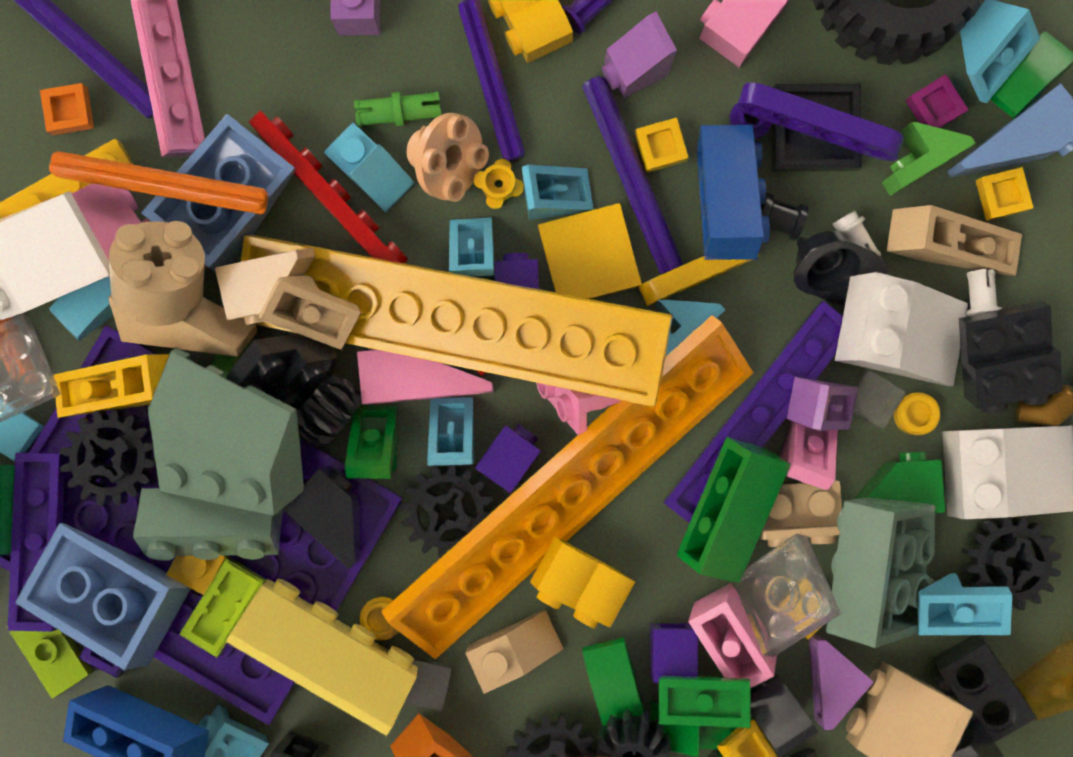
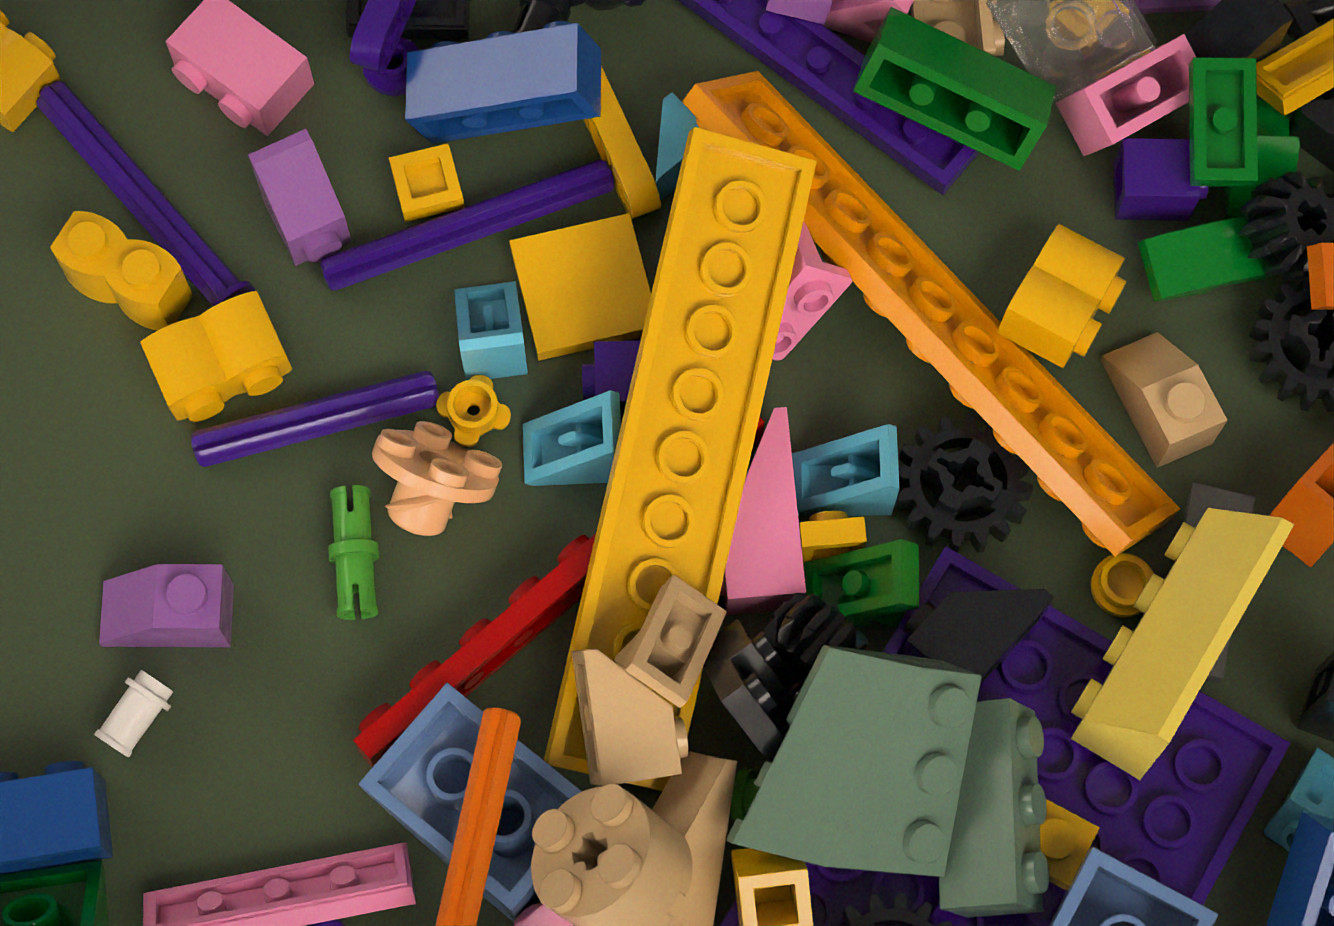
camera: 90 degrees left, 15 degrees down
(222, 606) = (1116, 799): lime plate -> none
(369, 167) = (441, 598): medium azure slope -> none
(408, 421) = (831, 534): none -> yellow plate
(509, 457) = (881, 392): dark purple brick -> none

